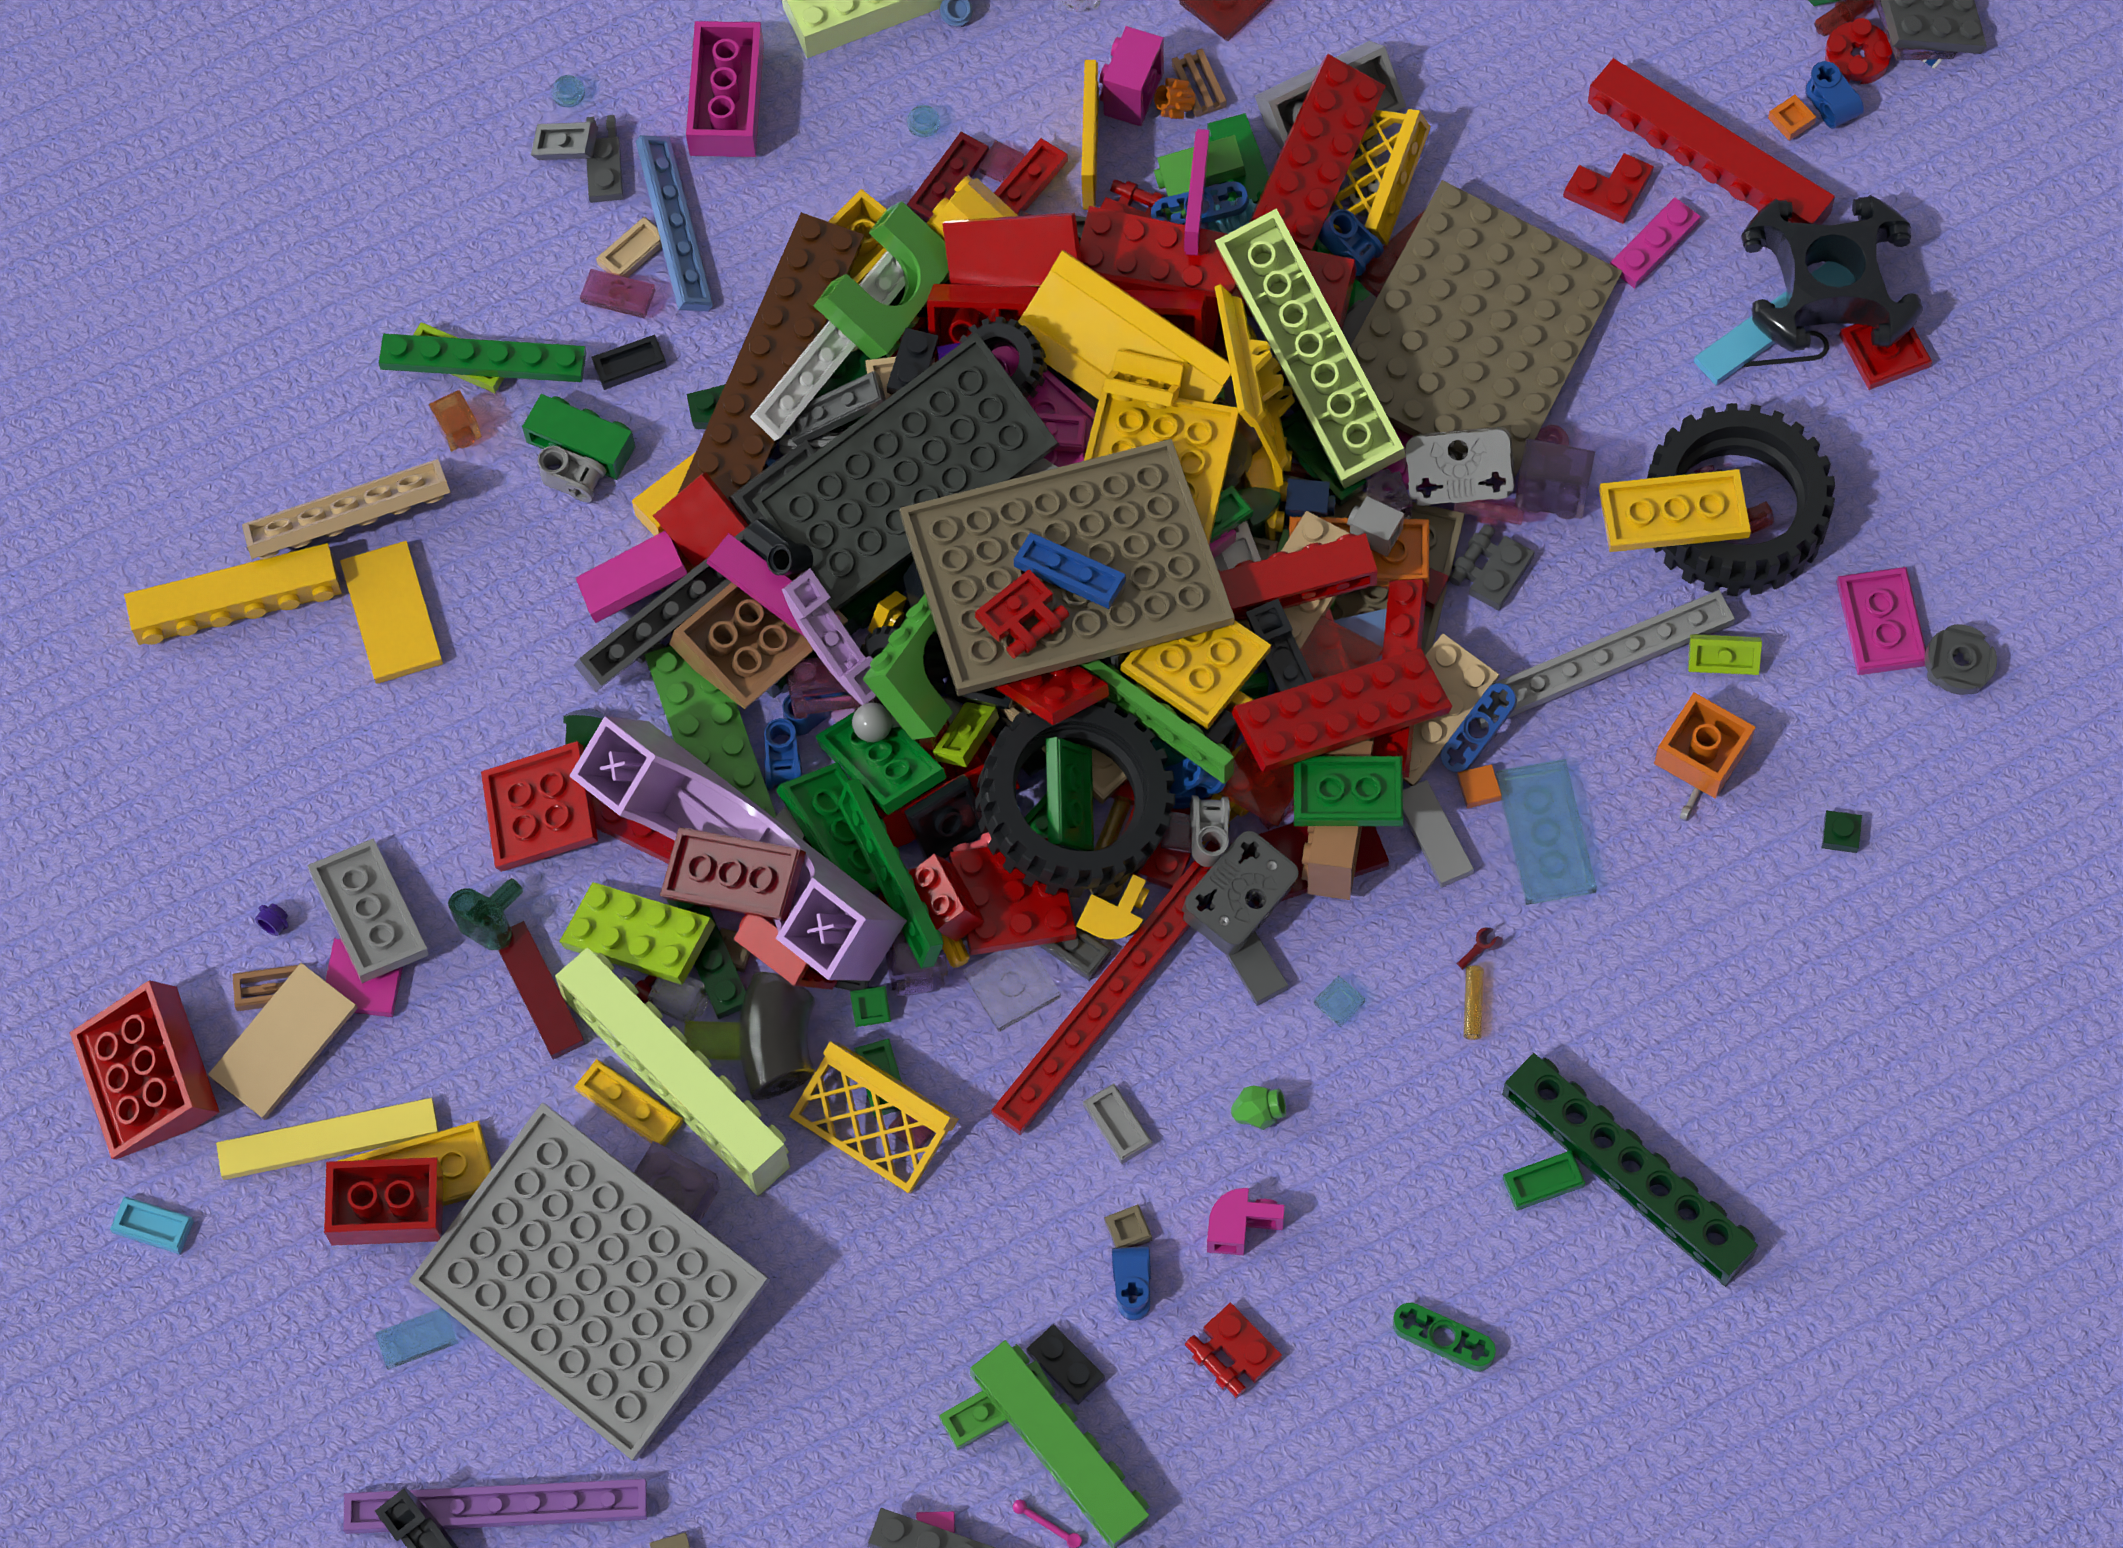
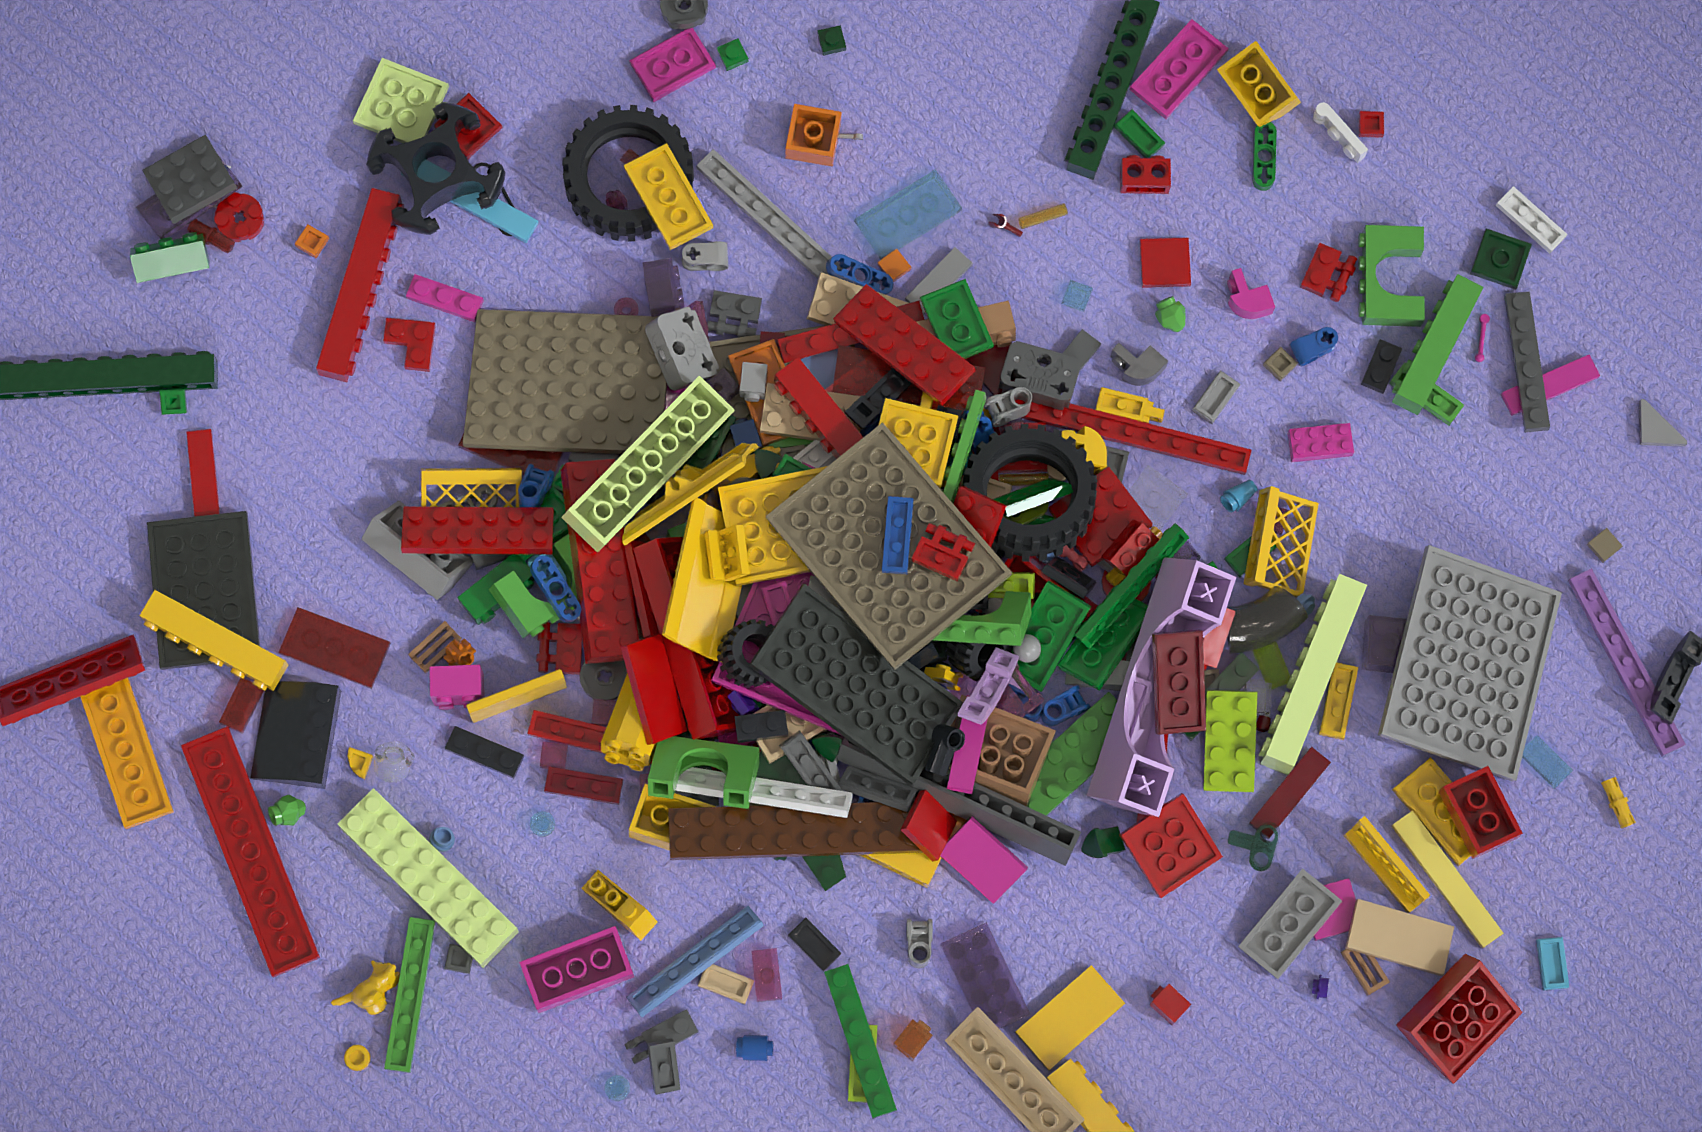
camera: 120 degrees left, 10 degrees up
(313, 1405) = (1618, 802): none -> yellow pin
(345, 728) = (1169, 1003): none -> red brick
(380, 1062) = (1386, 865): none -> yellow fence
(487, 531) = (985, 976): none -> clear purple plate
(537, 247) = (754, 1047): none -> blue brick
(580, 432) = (888, 948): green brick -> none
(775, 1109) = (1307, 602): none -> medium blue plate
(776, 166) = (619, 905): none -> yellow slope
(964, 1089) = (1236, 497): none -> dark azure cone
(991, 1232) = (1320, 442): none -> dark pink piece
(1041, 92) = (484, 752): none -> black plate
(1152, 998) = (1128, 406): none -> yellow hinge
(1156, 1391) = (1377, 304): none -> bright green arch
(1196, 192) = (558, 583): dark pink tile -> none
(1198, 1034) = (1141, 369): none -> flat silver brick
(1339, 1136) = (1165, 262): none -> red tile
(1431, 1505) = (1371, 124): none -> red plate
(1435, 1453) = (1340, 132): none -> white plate
(1471, 1155) = (1145, 182): none -> red brick
(1550, 1365) = (1258, 85): none -> yellow slope
(1584, 558) = (708, 256): none -> light grey piece
(1621, 1271) = (1178, 69): none -> dark pink plate
(1724, 654) = (740, 147): lime plate -> none
(1833, 95) = (288, 217): blue piece -> none
(1867, 699) = (732, 54): none -> green plate
(1950, 275) = (400, 101): none -> yellowish green plate

